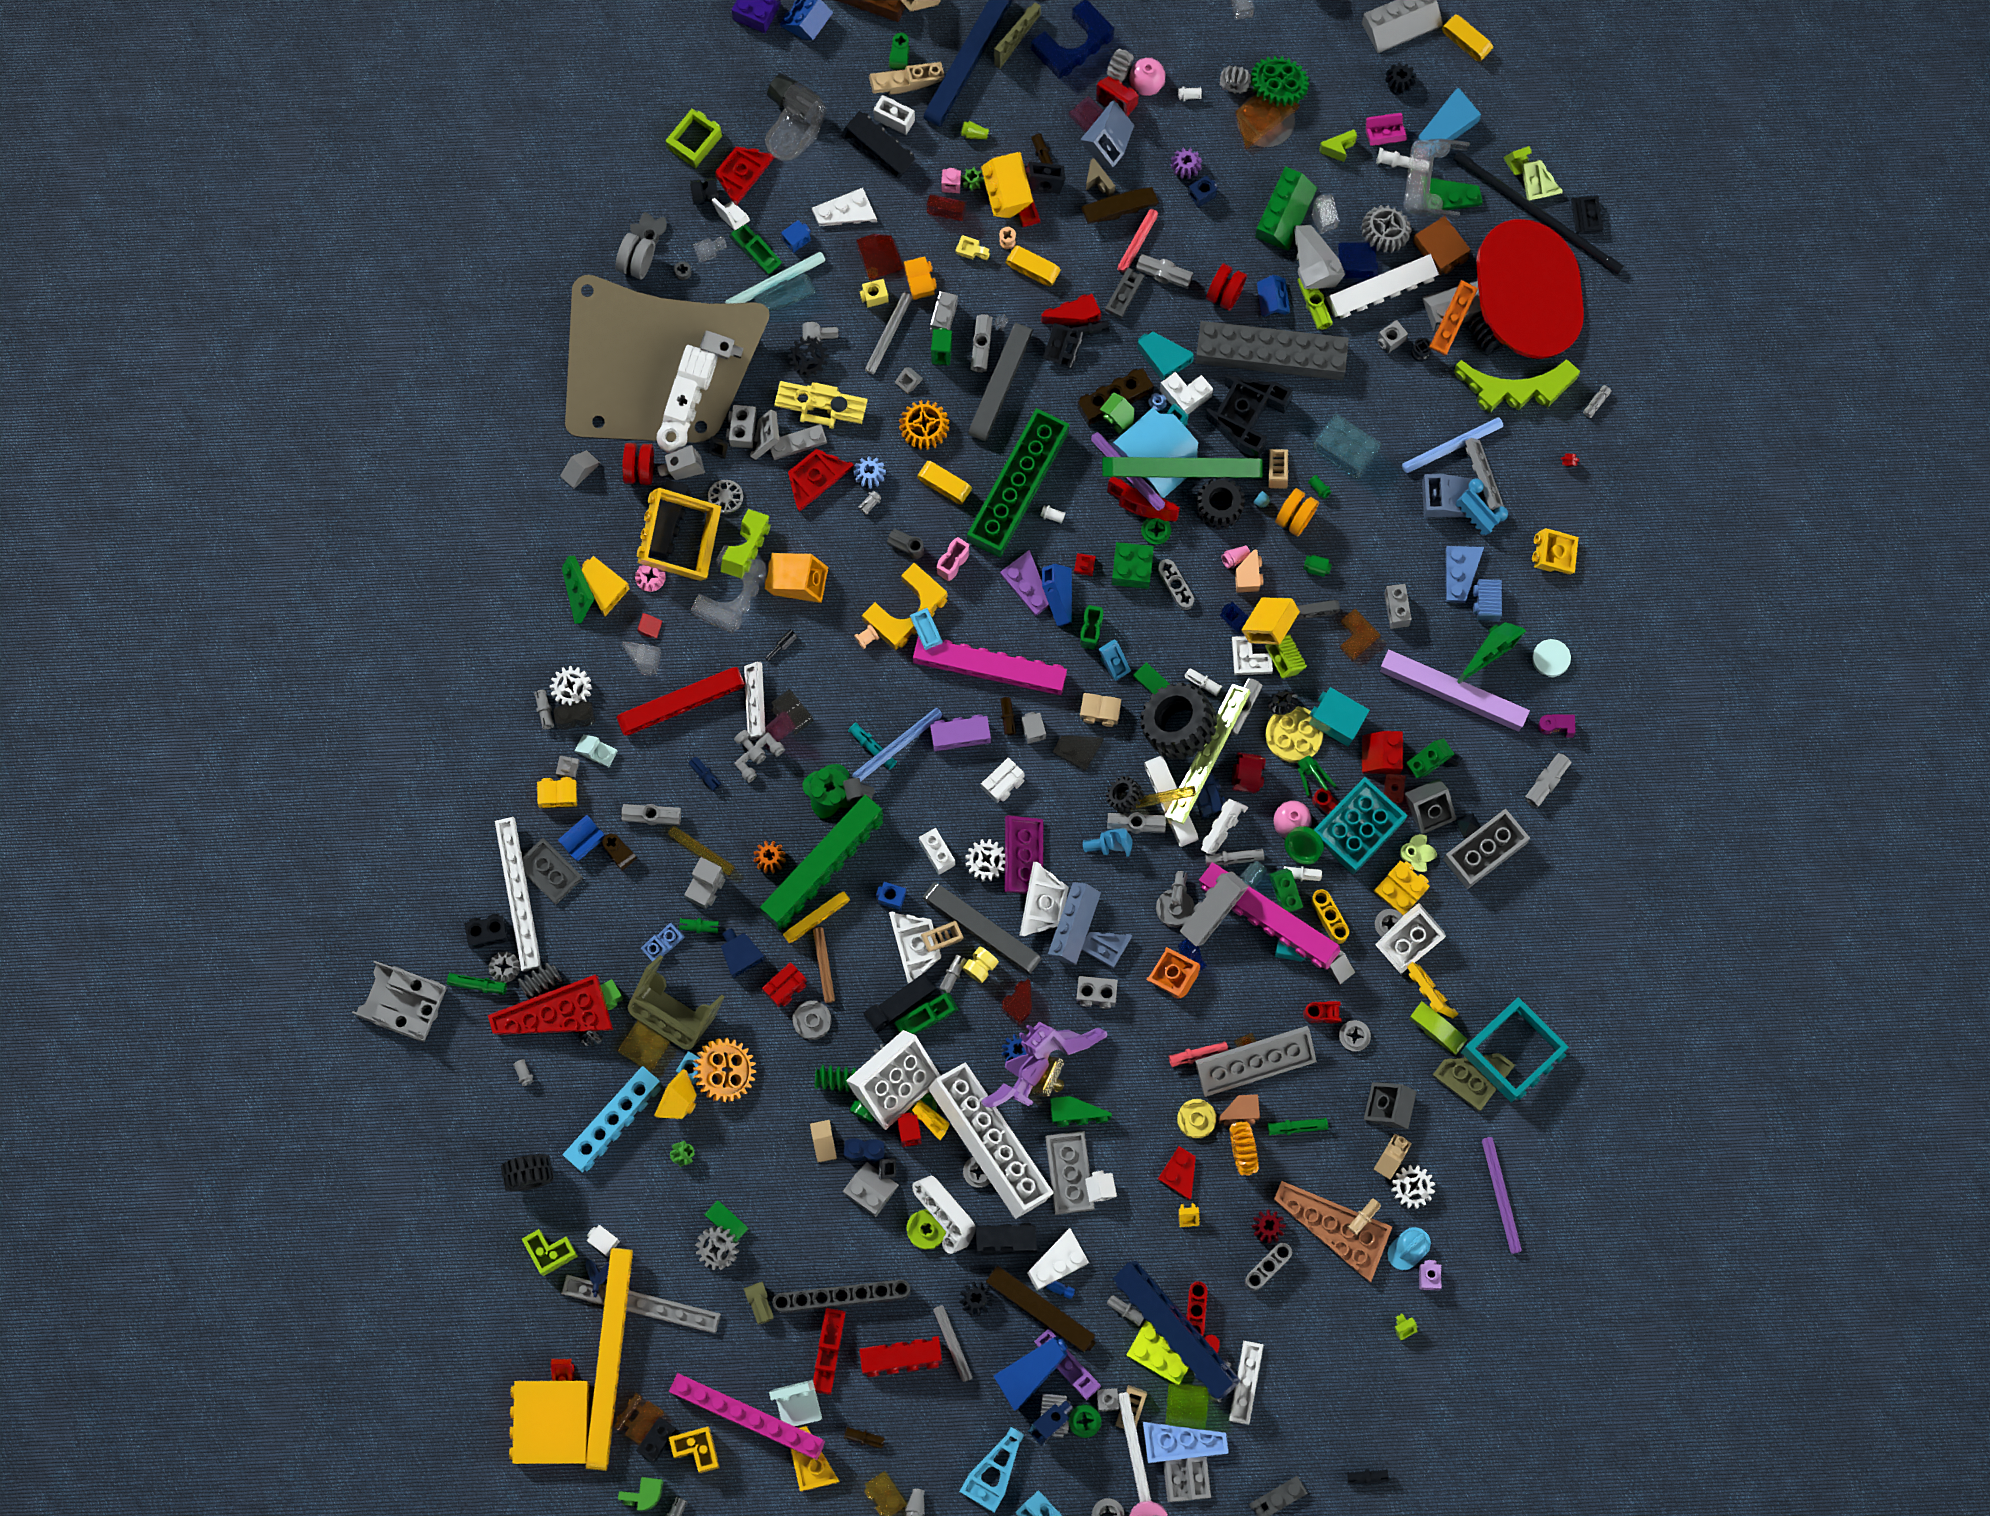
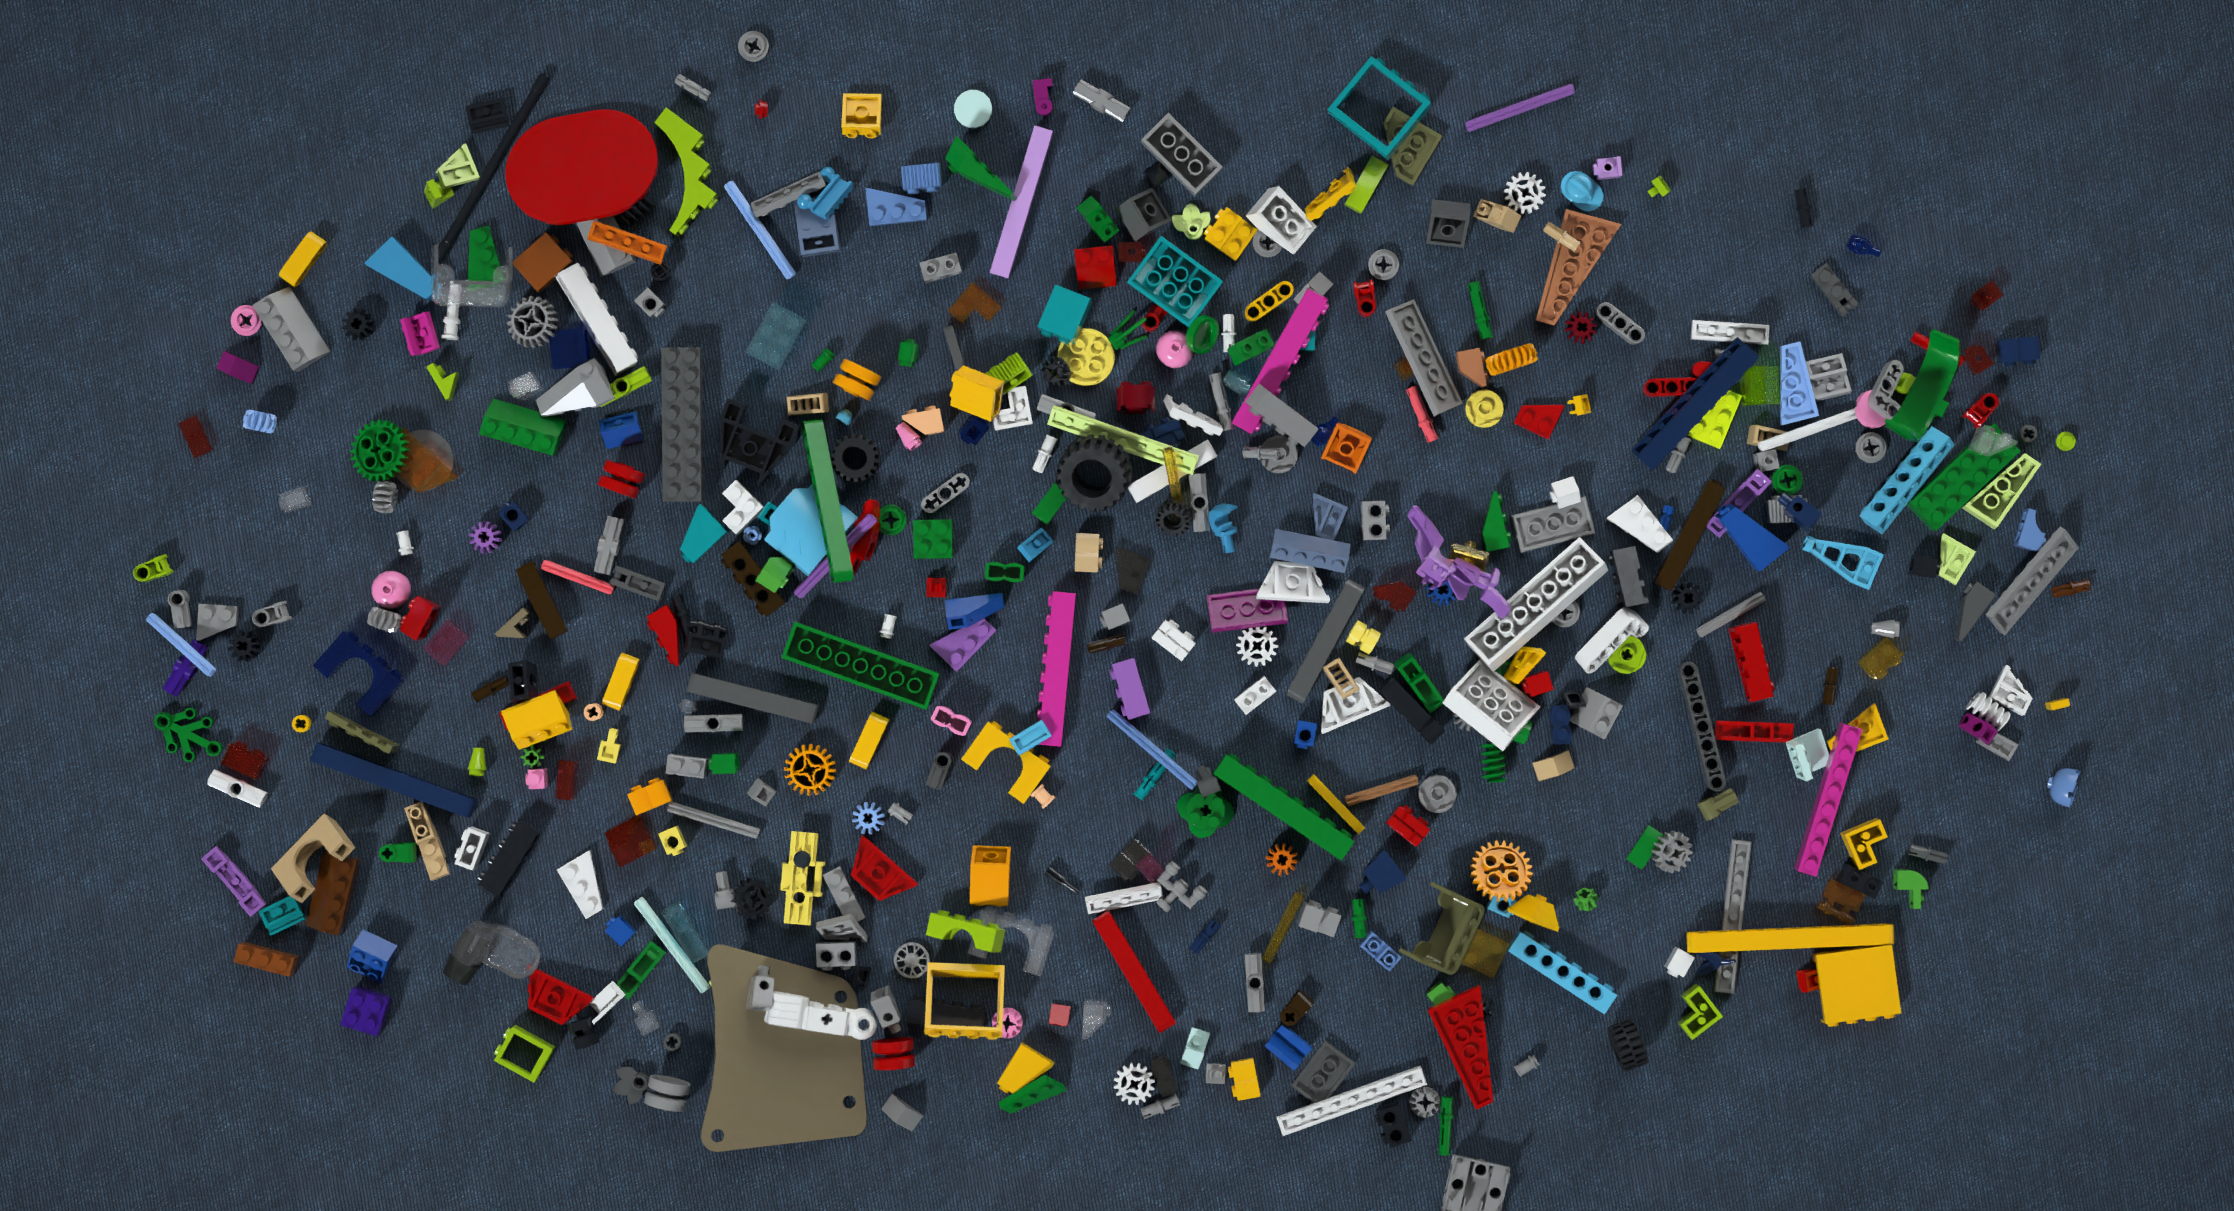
camera: 95 degrees left, 15 degrees up
(540, 980) = (1435, 1063): dark grey piece -> none
(1109, 135) = (466, 620): sand blue slope -> none
(1629, 453) = (751, 37): none -> light grey gear

